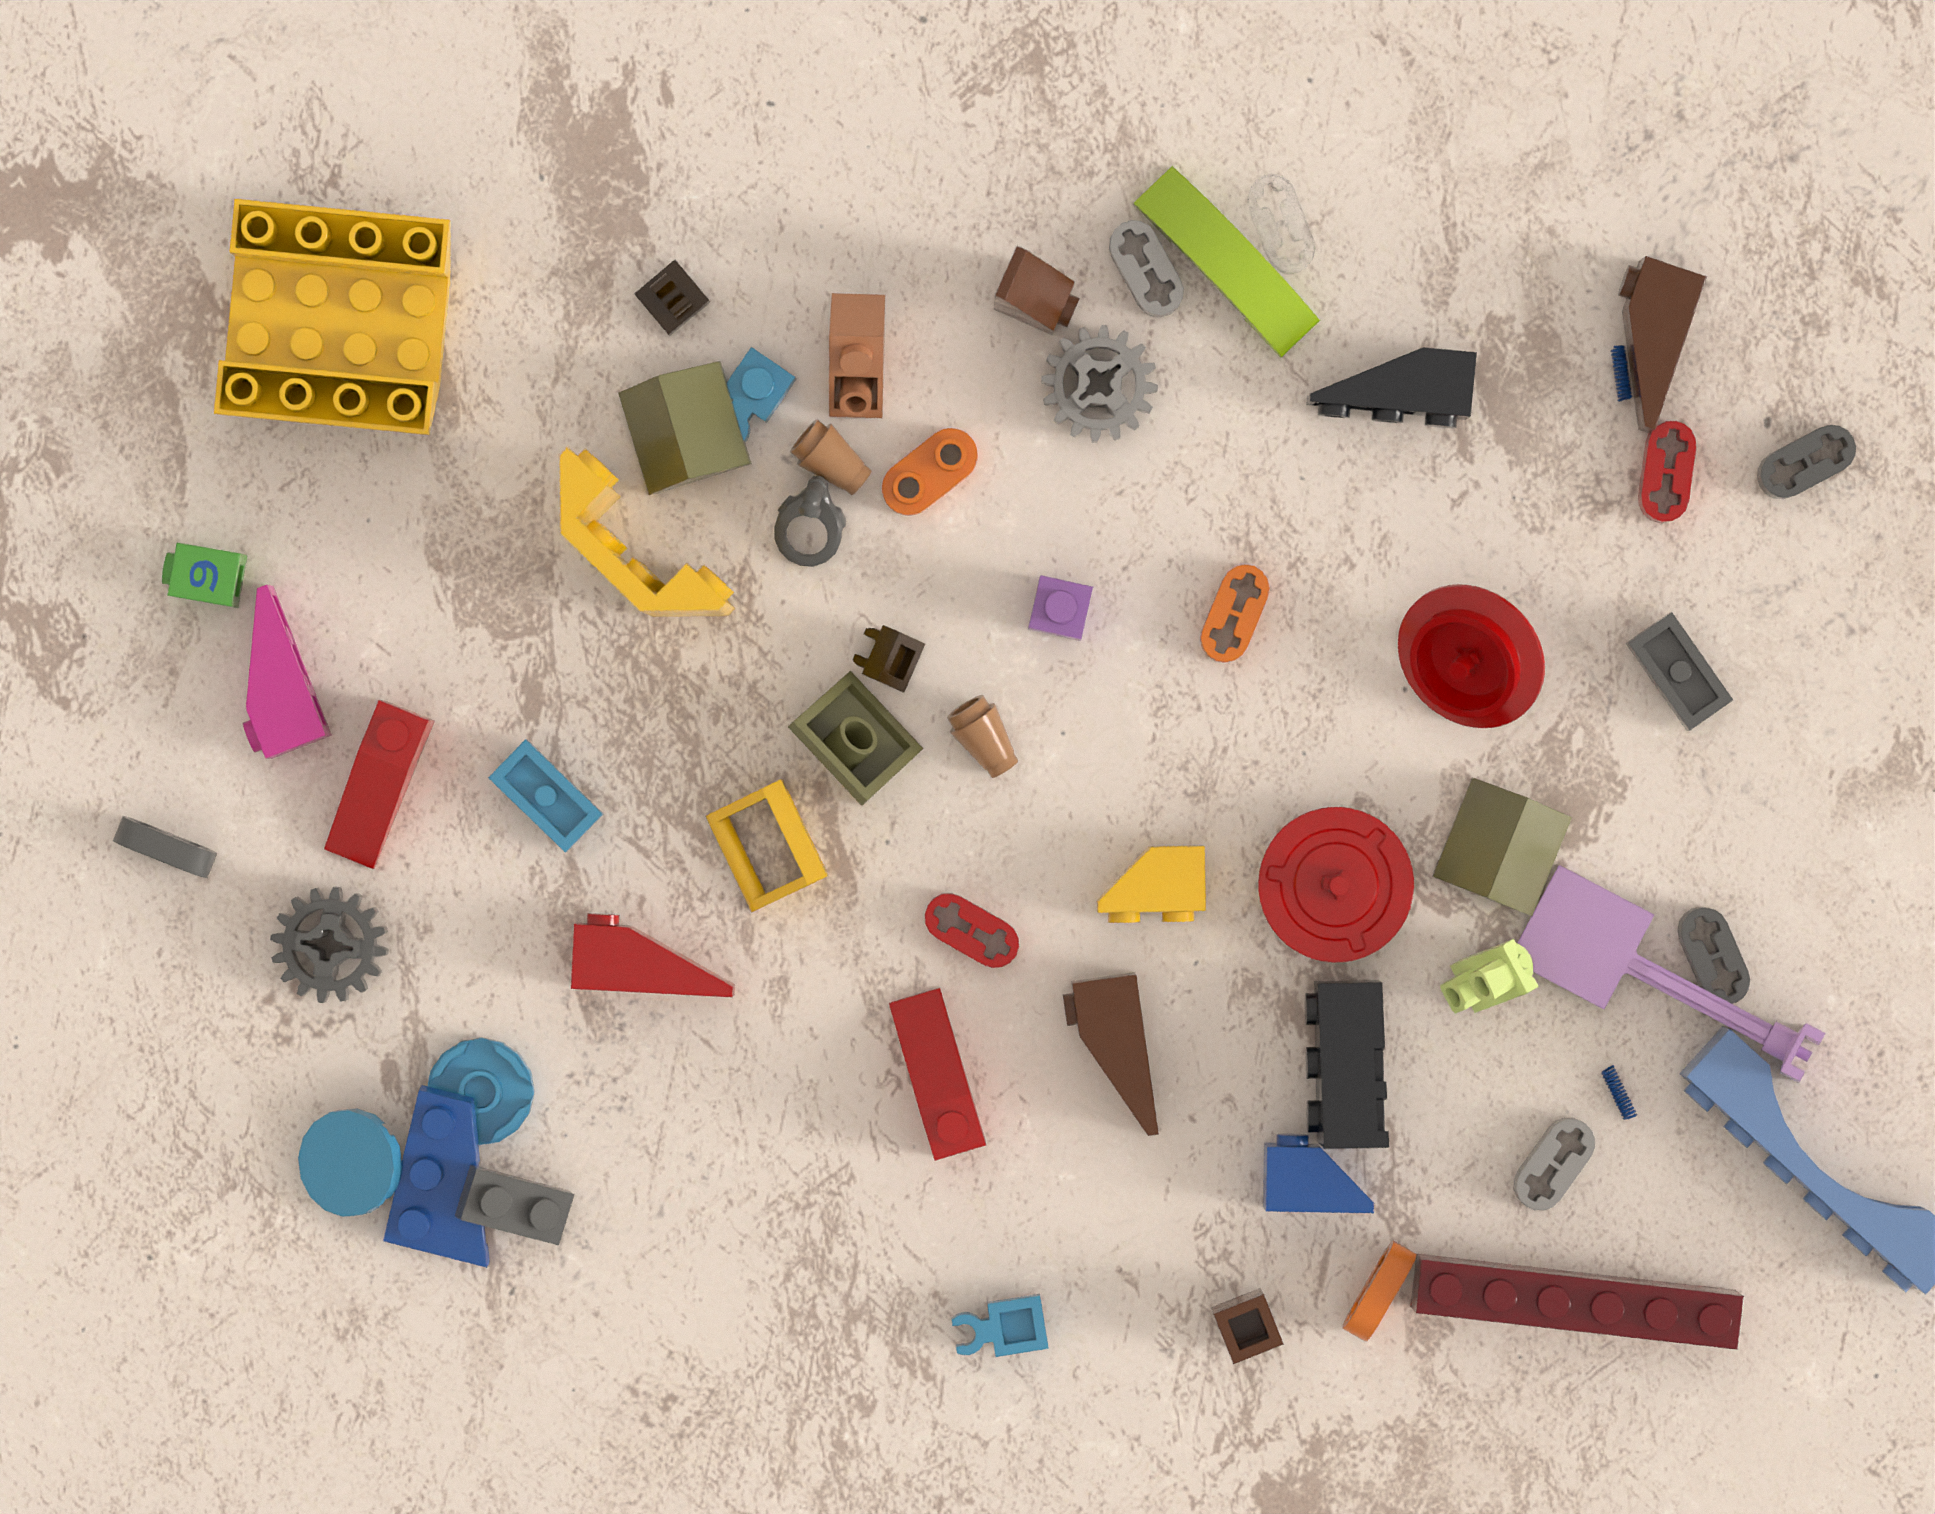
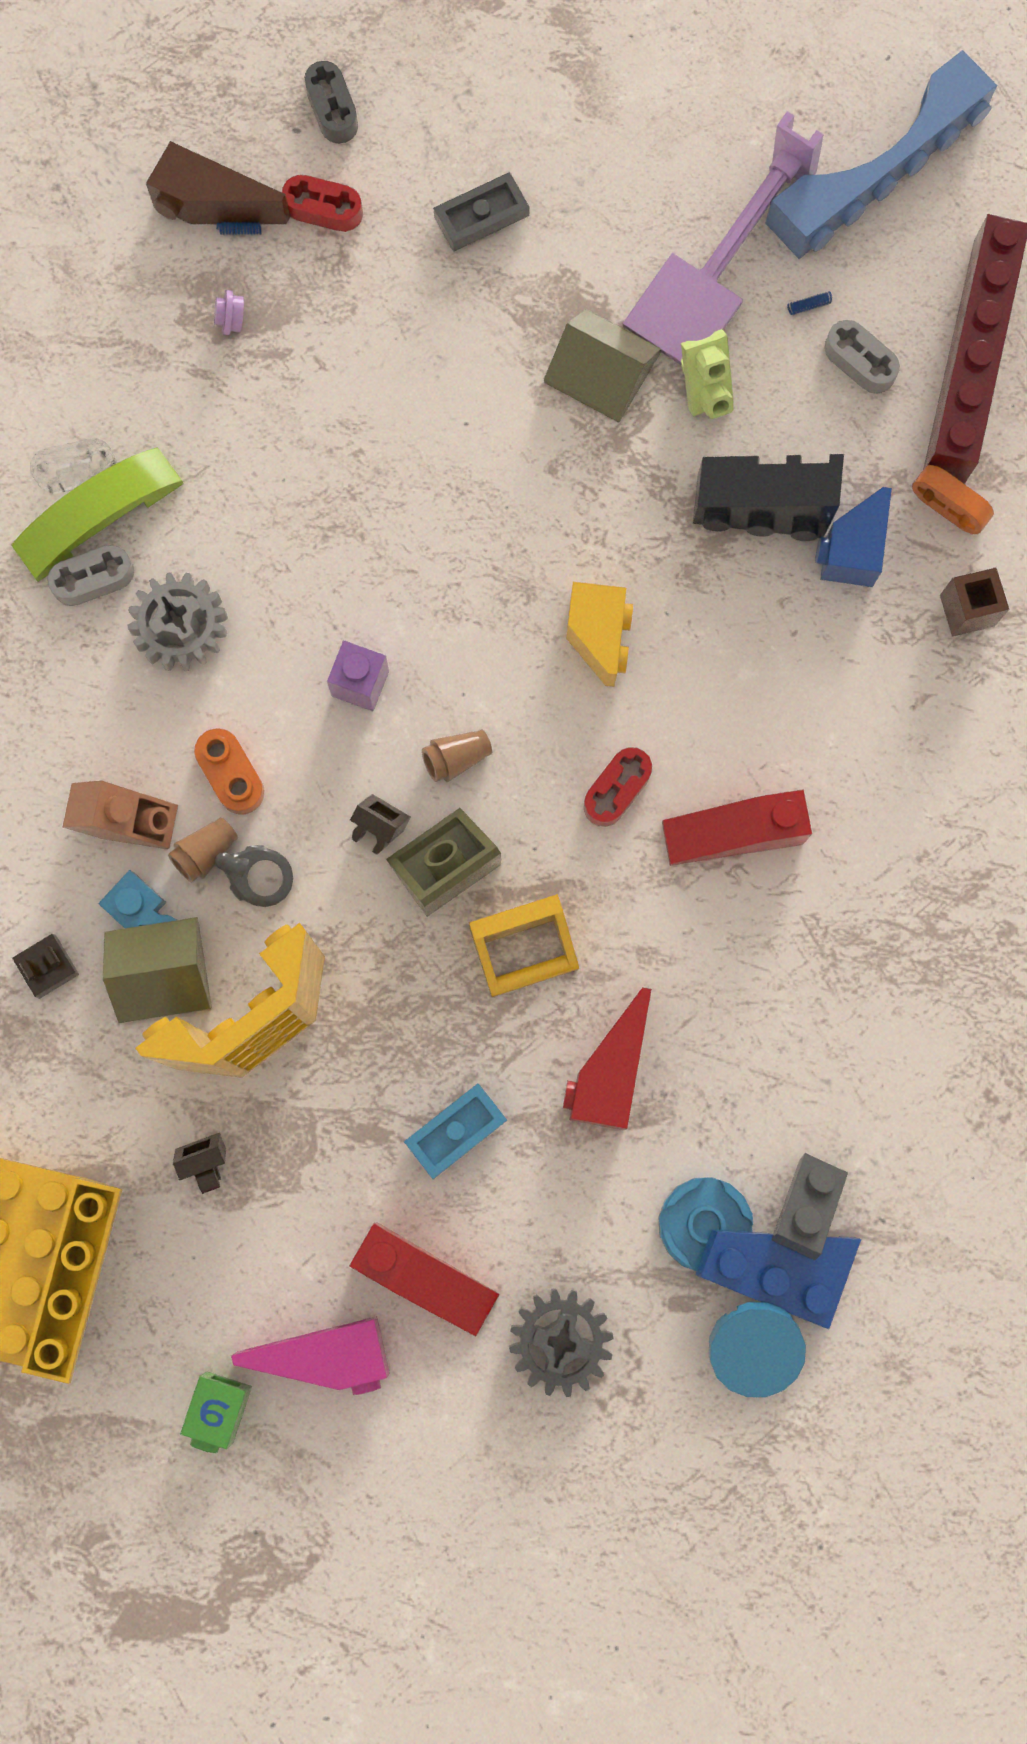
camera: 85 degrees left, 10 degrees down
(165, 847) = (454, 1483): dark grey beam -> none
(474, 514) = (201, 1160): none -> dark brown tile
(1012, 1326) = (954, 796): dark azure plate -> none
(1035, 293) = (87, 657): reddish brown slope -> none
(1114, 1033) = (717, 679): reddish brown slope -> none
(1222, 608) = (390, 534): orange beam -> none
(1336, 884) = (617, 487): red piece -> none
(1418, 383) = (222, 367): black slope -> none
(1471, 656) = (445, 355): red piece -> none
(1501, 381) = (229, 312): none -> lavender plate
(1725, 949) = (708, 216): dark grey beam -> none

